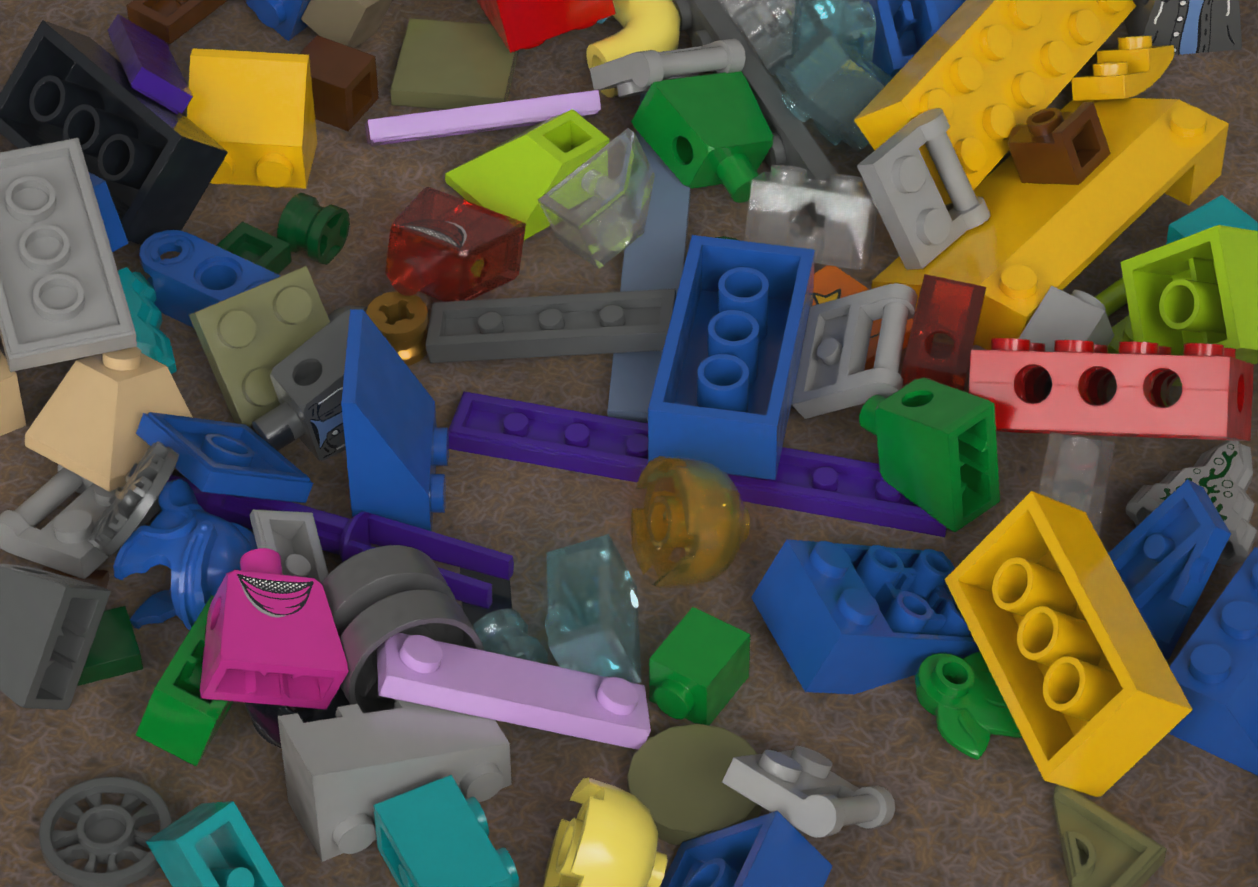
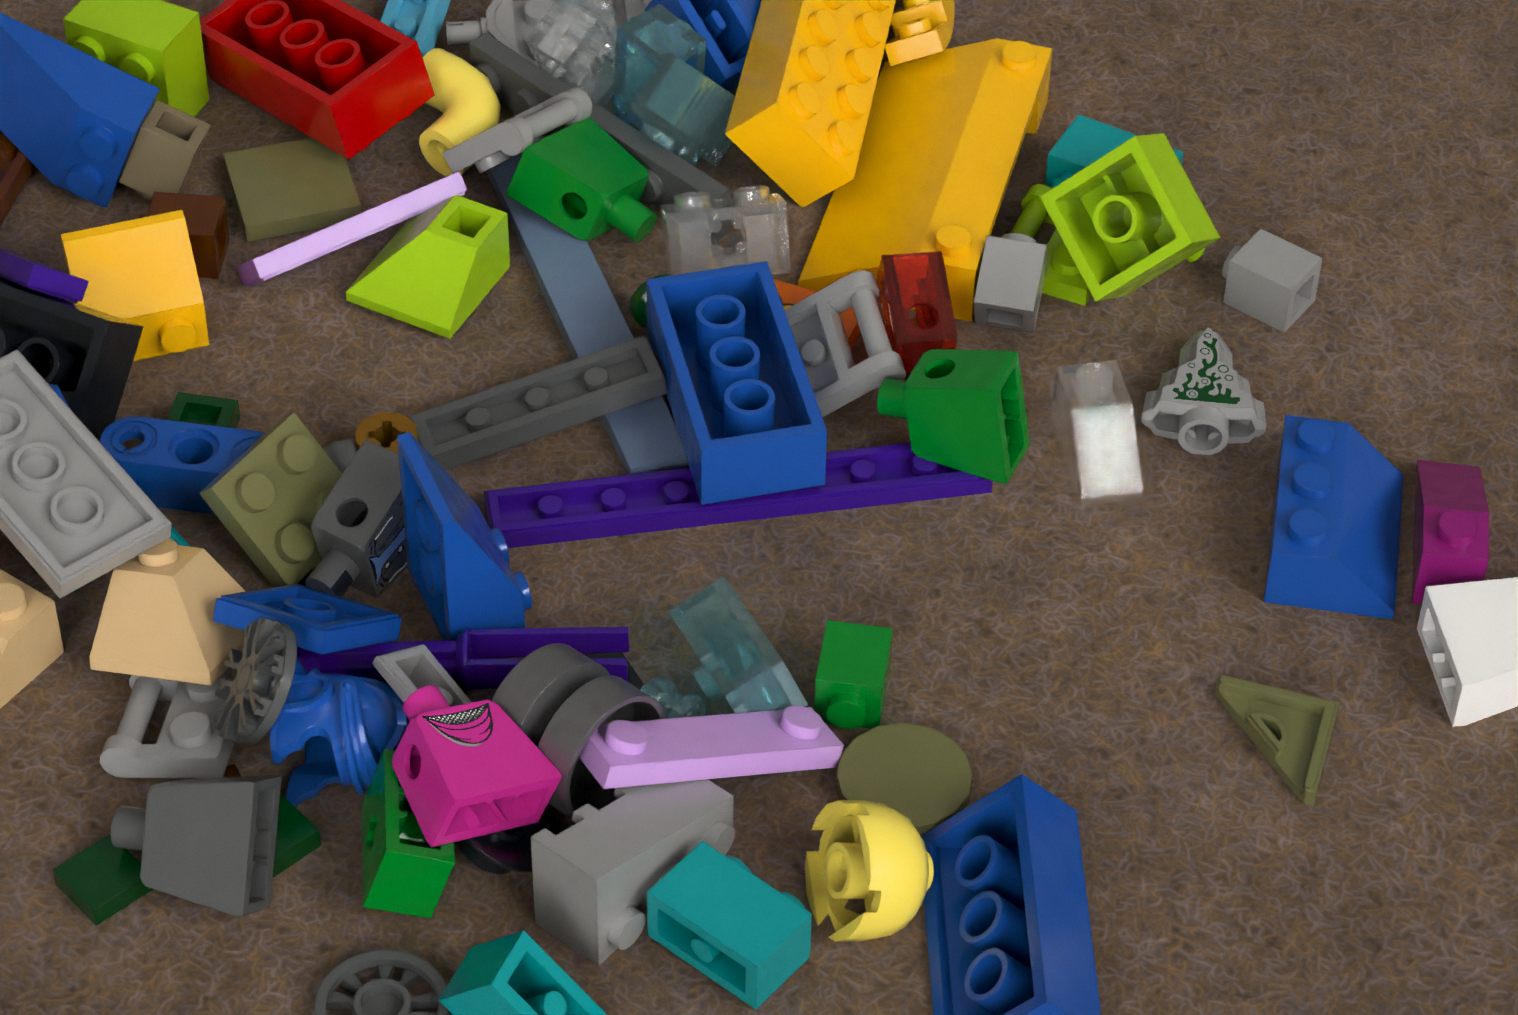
camera: 25 degrees left, 0 degrees up
(314, 227) = (250, 378): dark green wheel -> none
(452, 248) = (402, 359): clear red torso -> none
(603, 201) = (519, 278): clear slope -> none
(689, 509) = (767, 533): clear yellow cylinder -> none
(807, 792) = (1007, 751): light grey plate -> none
(859, 613) = (972, 580): blue slope -> none
(908, 193) = (812, 189): light grey plate -> none
(964, 701) = (1106, 626): green plate -> none
(1058, 145) = (916, 108): reddish brown brick -> none
(1066, 645) = (1174, 550): yellow brick -> none
(1171, 560) = (1211, 458): blue wing -> none
(1211, 406) = (1195, 306): brick -> none

